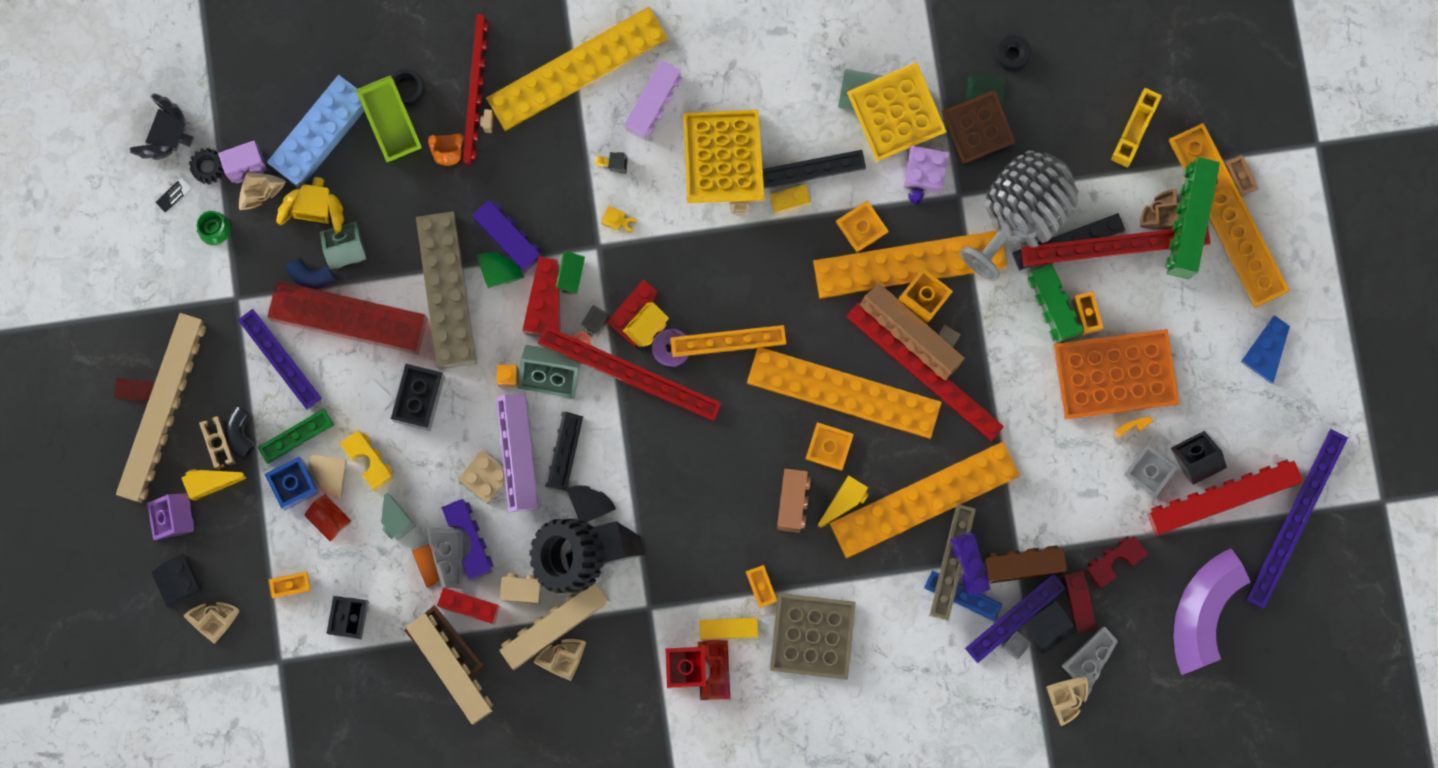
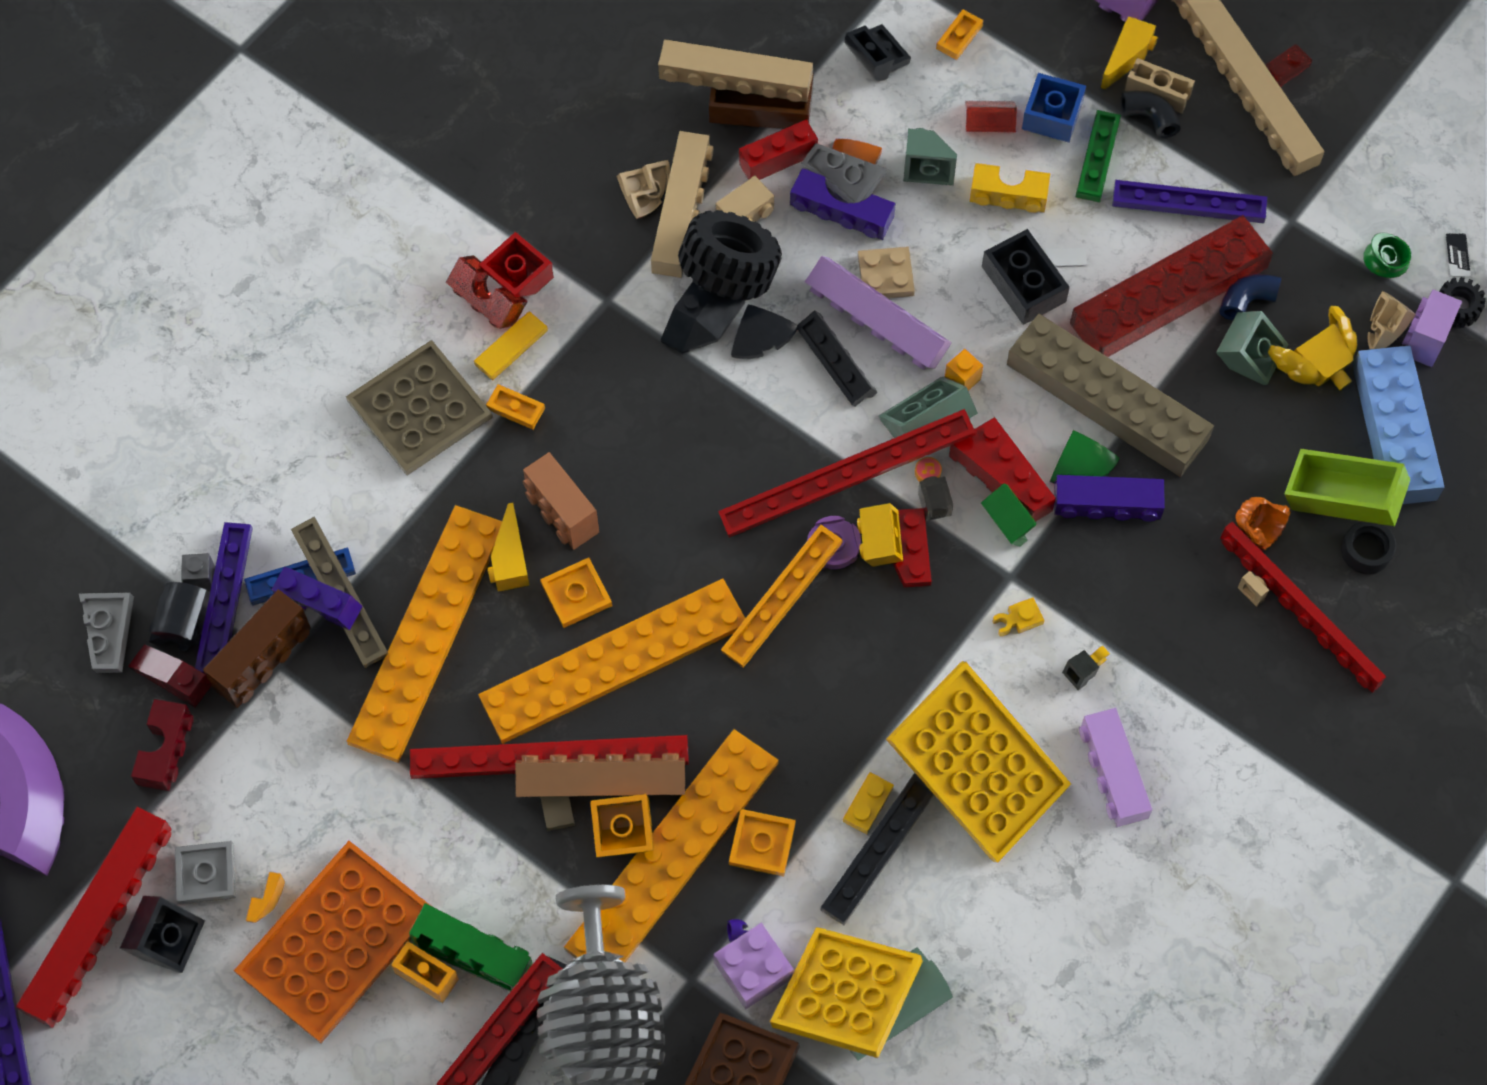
camera: 135 degrees right, 15 degrees down
(328, 473) = (1032, 150): tan brick -> none
(577, 68) = (1226, 732): yellow plate -> none
(1067, 698) = (99, 571): tan brick -> none

